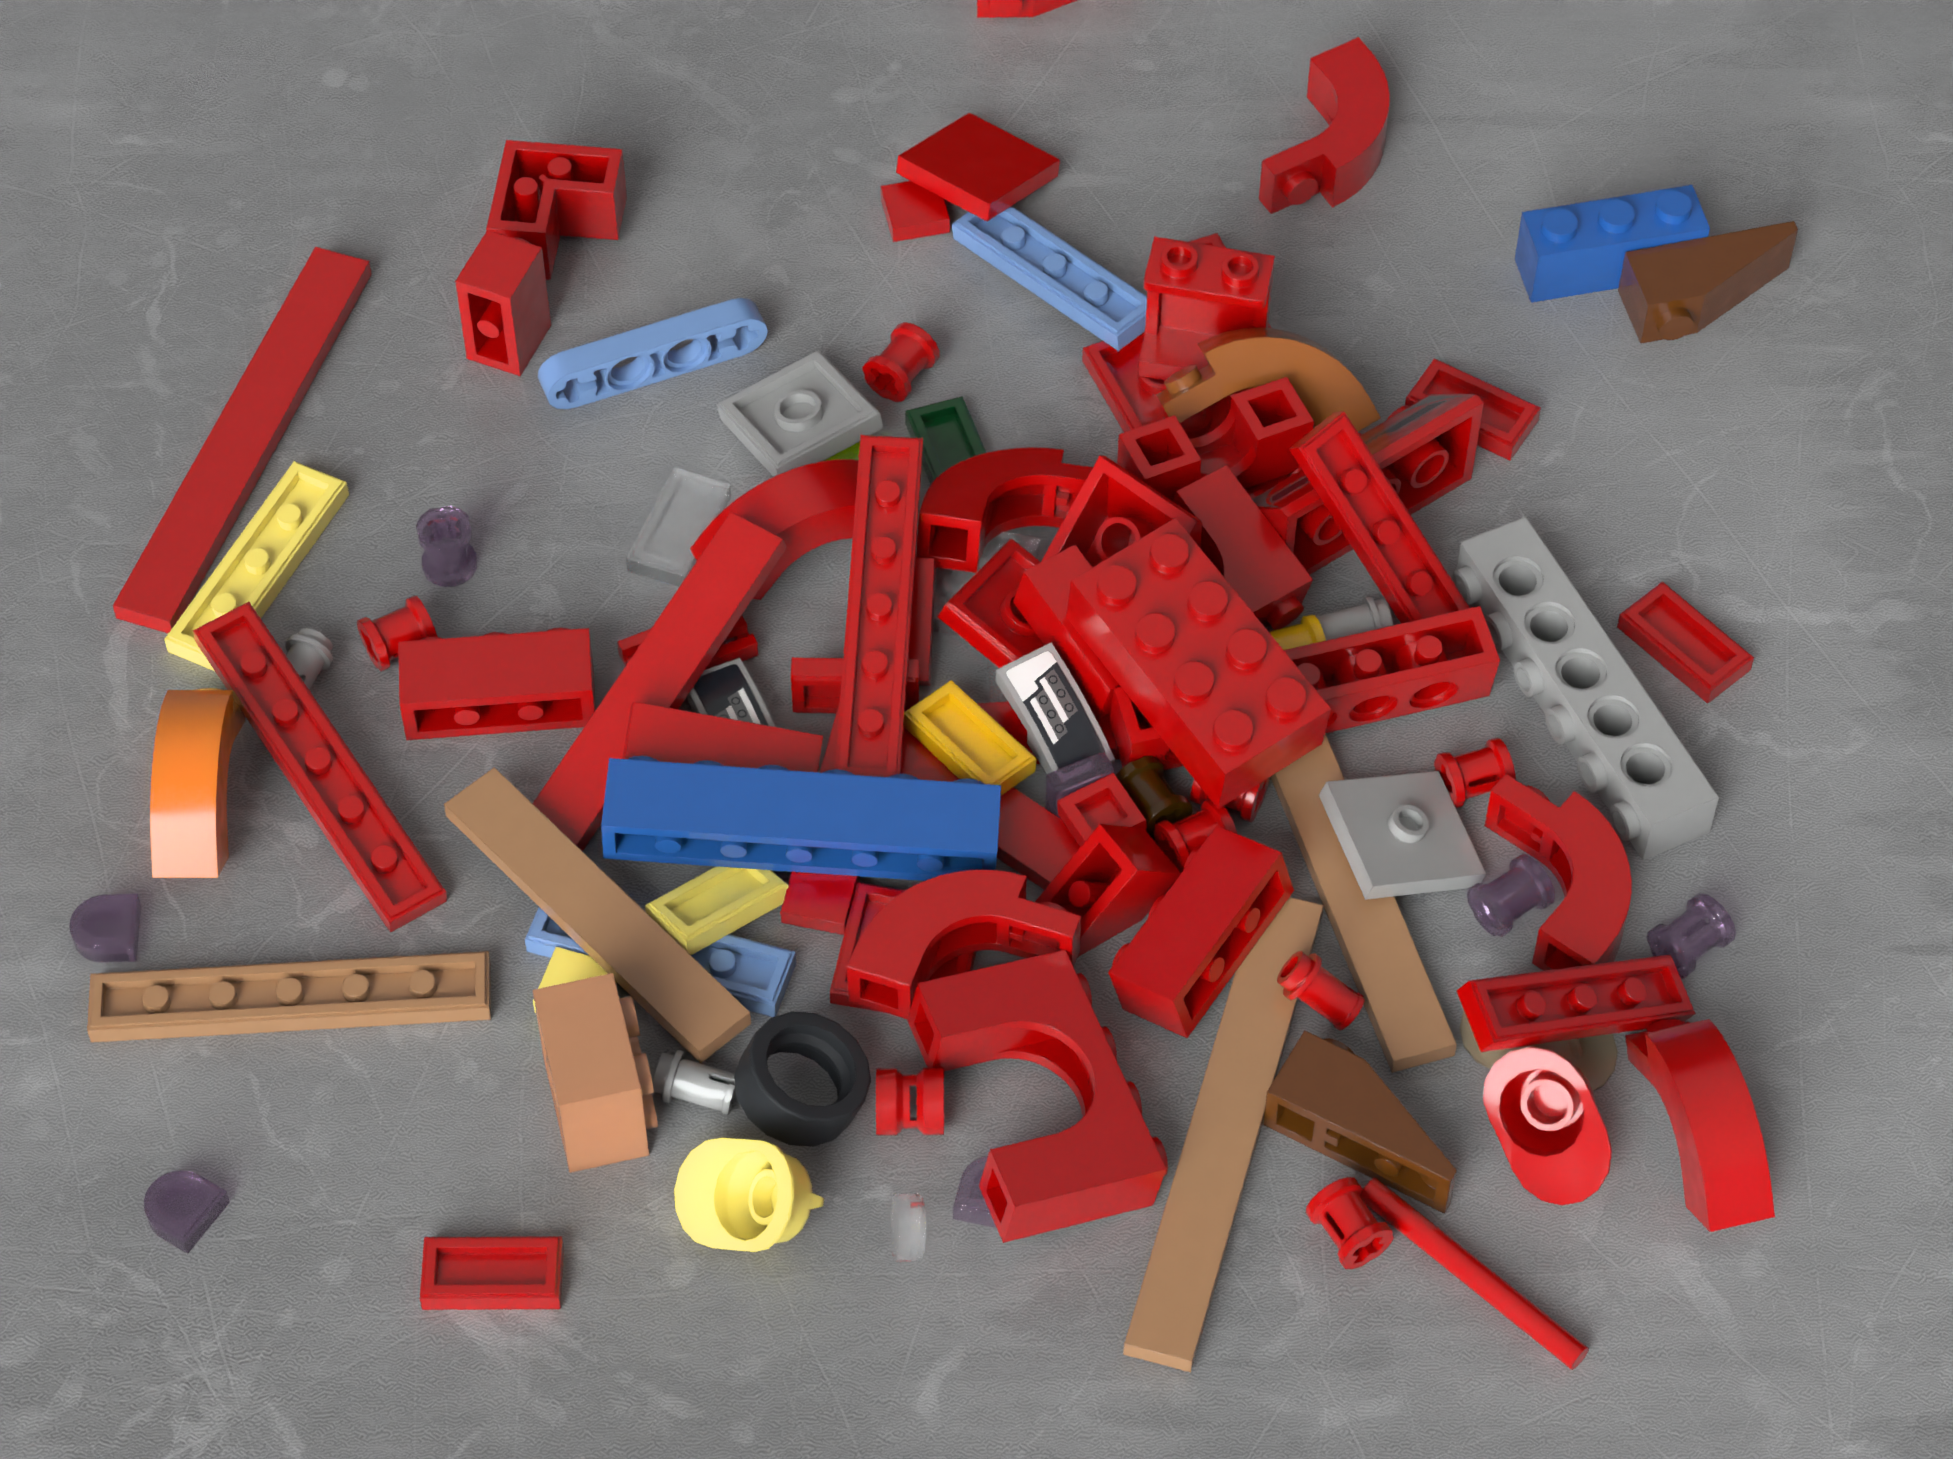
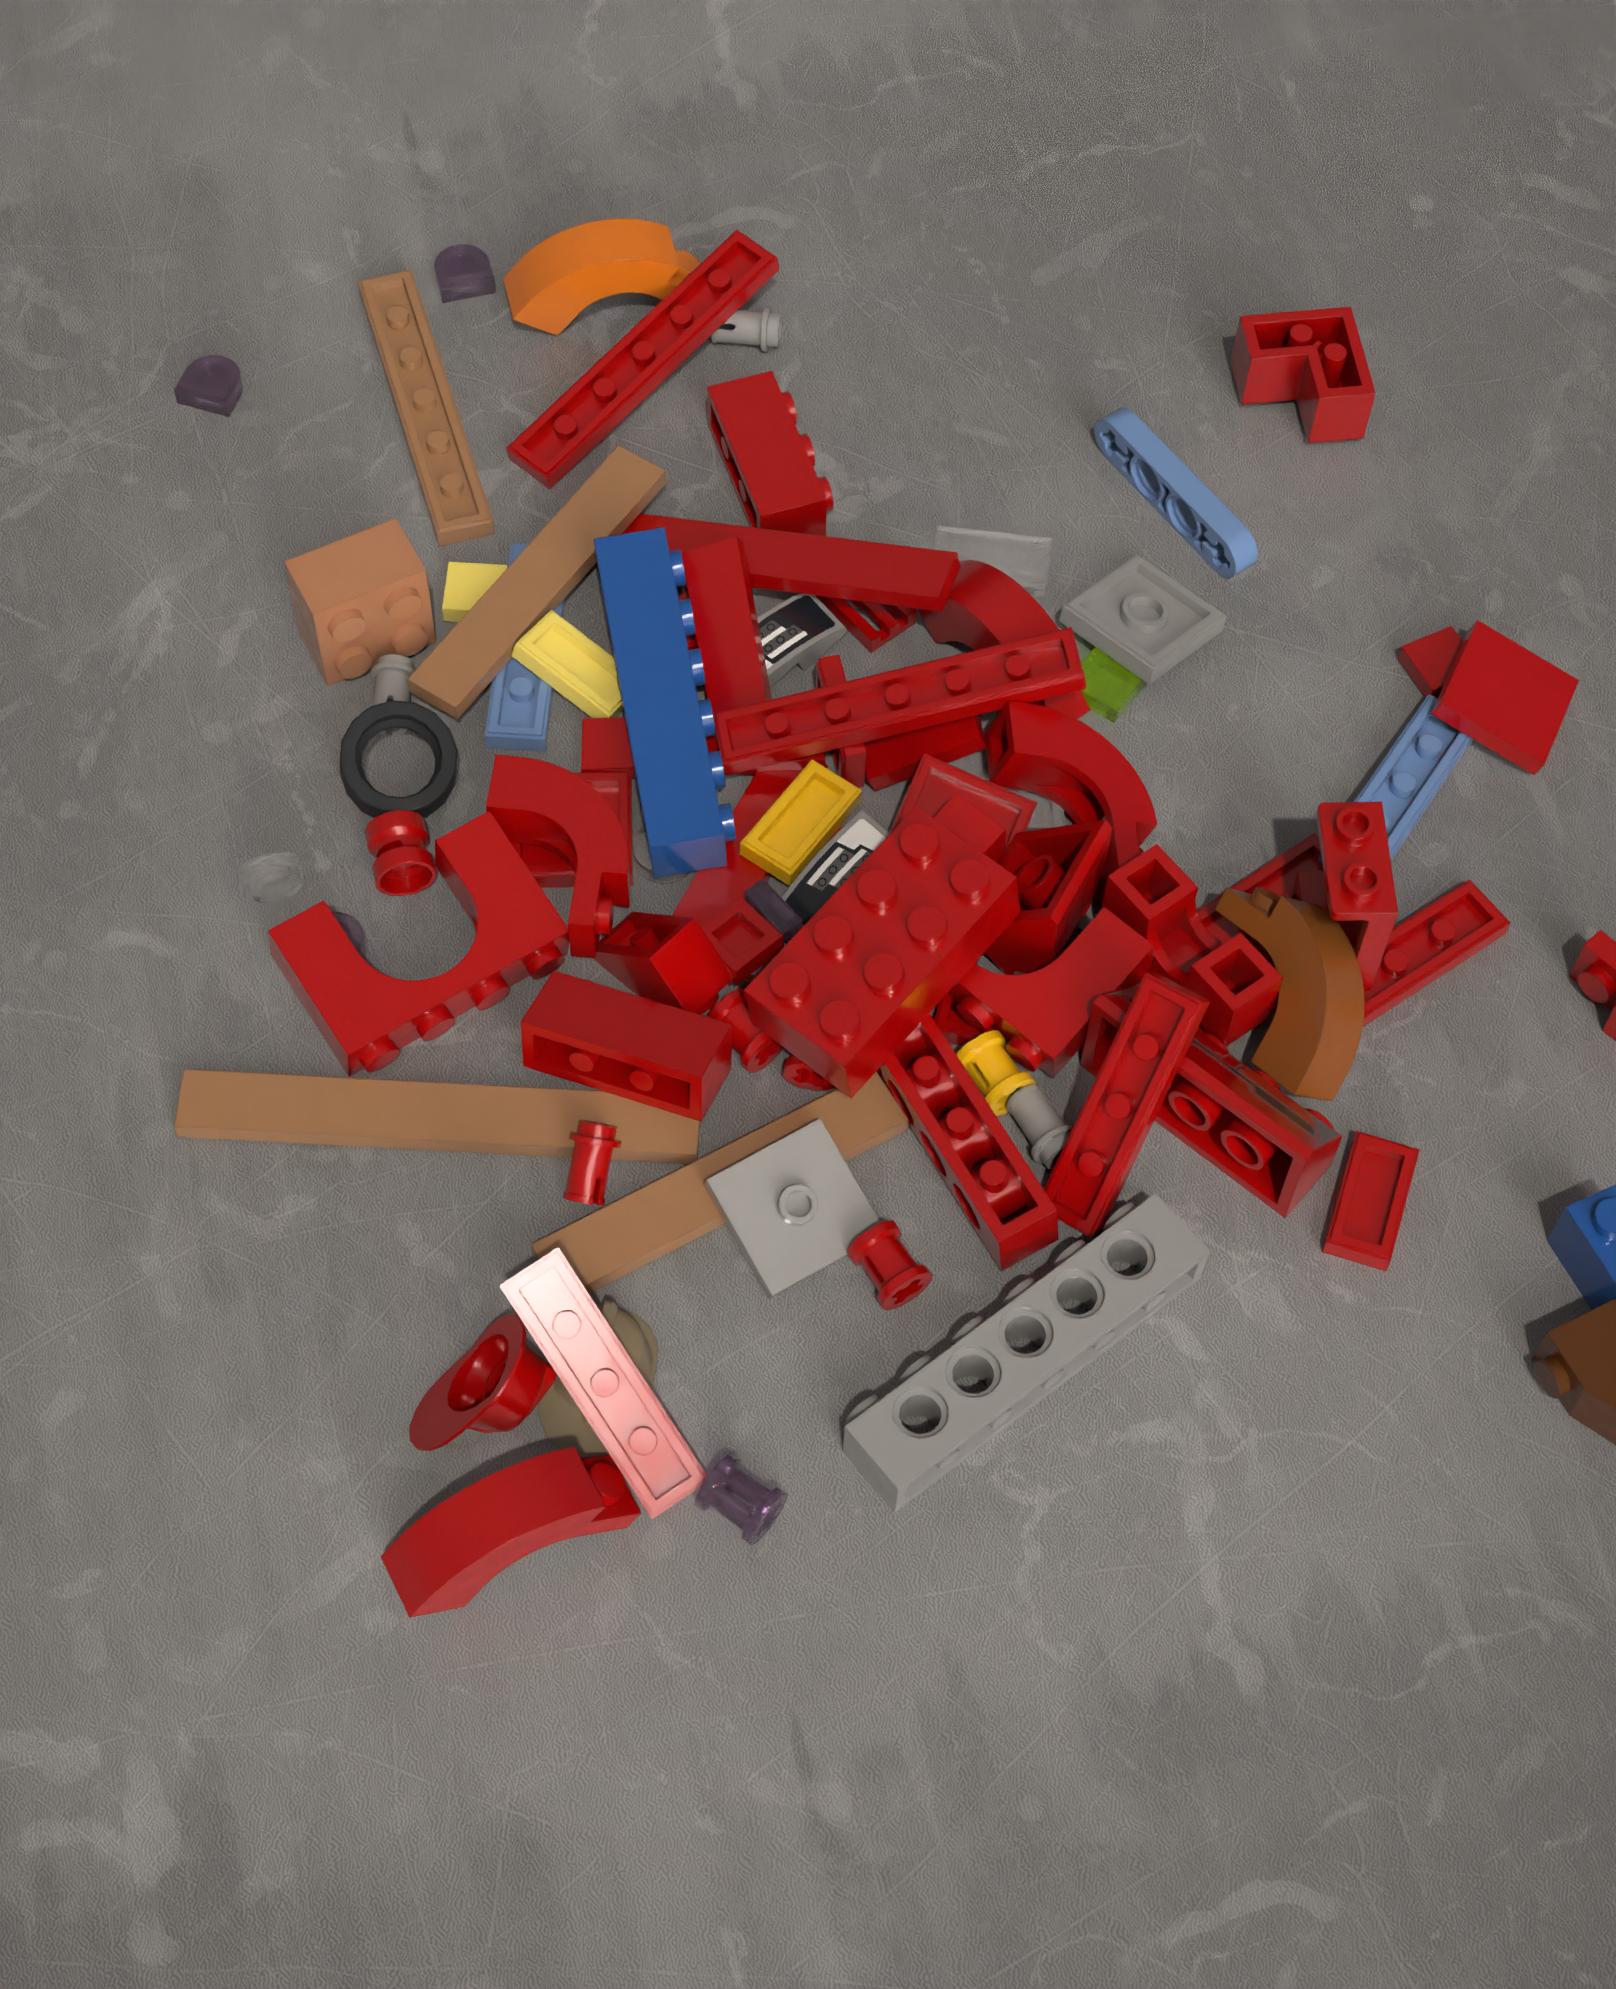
camera: 75 degrees right, 5 degrees up
(242, 441) = (988, 235): red tile -> none
(263, 554) = (864, 280): light yellow tile -> none
(384, 633) = (807, 385): red bush -> none
(447, 553) = (913, 402): clear purple bush -> none
(492, 1273) = (186, 599): red tile -> none
(503, 302) = (1173, 357): red brick -> none
(743, 1195) = (276, 755): light yellow piece -> none
(901, 362) = (1236, 684): red bush -> none
(946, 434) = (1165, 745): dark green tile -> none
(1349, 1222) = (340, 1232): red bush -> none
(1350, 1115) = (457, 1216): reddish brown slope -> none
(1474, 1274) = (314, 1357): red bar -> none
(1511, 895) = (747, 1320): clear purple bush -> none
(1586, 861) = (779, 1396): red arch -> none
(1685, 642) = (1128, 1453): red tile -> none

